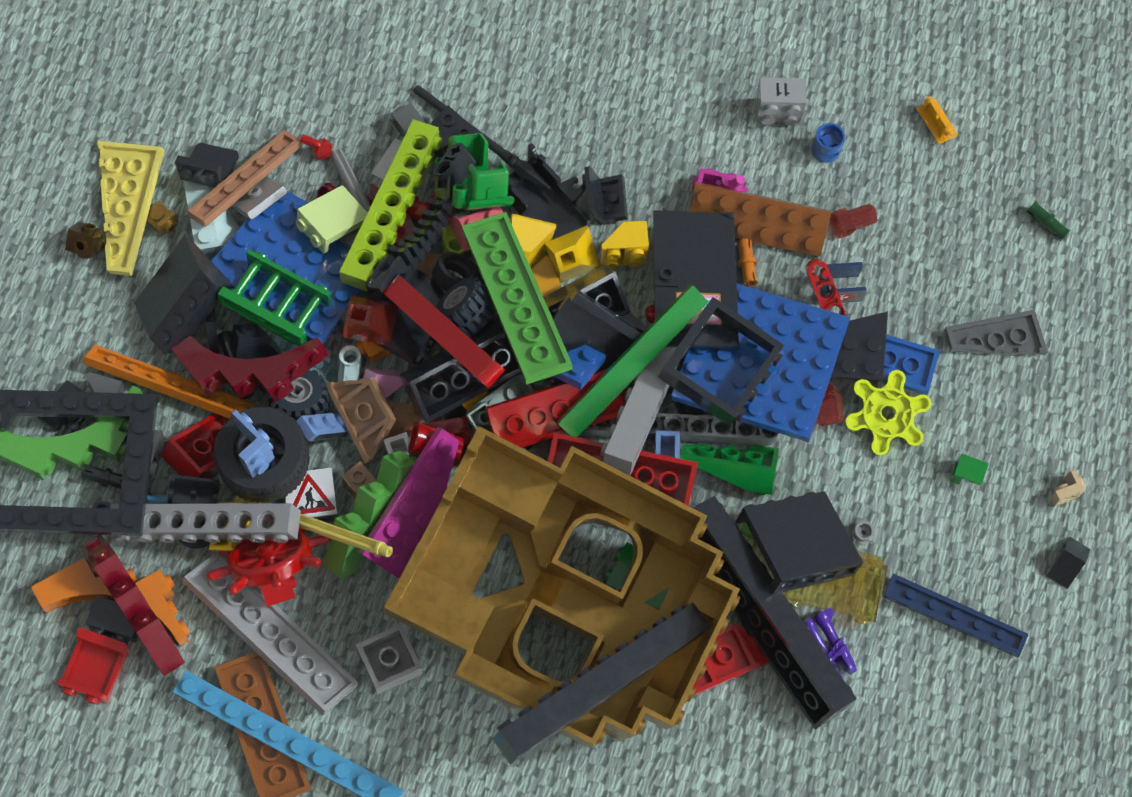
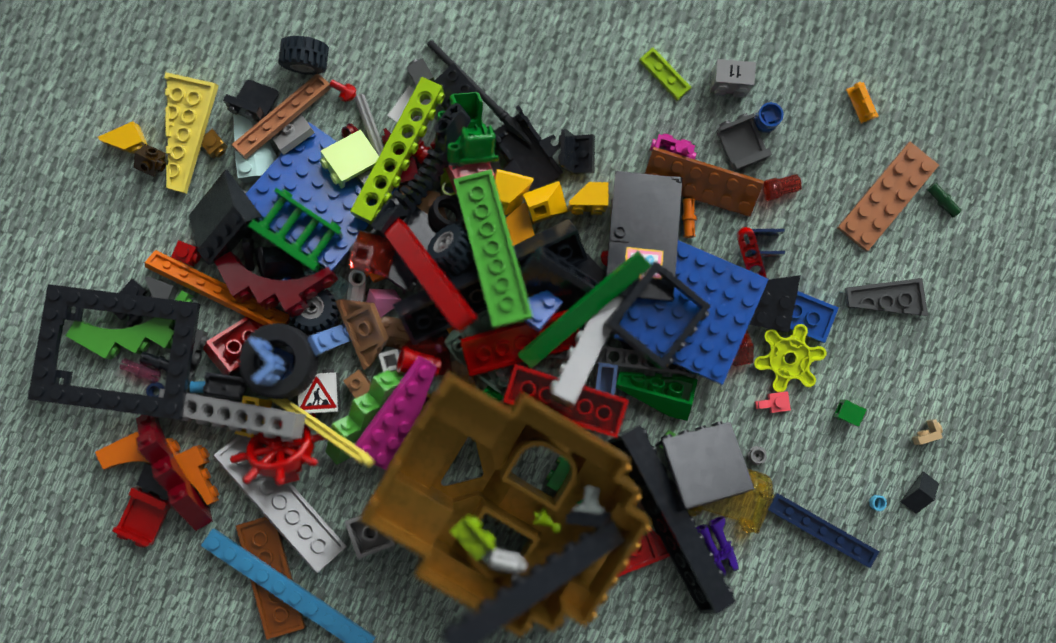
camera: 10 degrees right, 15 degrees up
(51, 218) = (126, 138): none -> yellow slope
(82, 488) = (140, 370): none -> clear pink pin
(134, 345) = (186, 253): none -> red bracket
(268, 107) = (303, 55): none -> black wheel
(523, 633) = (473, 537): none -> lime bracket
(566, 659) = (507, 562): none -> light grey piece
(608, 615) = (542, 518): none -> lime piece
(662, 591) = (589, 512): none -> piece
(700, 105) = (665, 73): none -> lime tile
(801, 173) = (742, 142): none -> dark grey panel
(878, 467) = (776, 402): none -> coral plate
(981, 223) = (888, 196): none -> nougat plate
(1022, 576) = (877, 503): none -> medium azure hinge

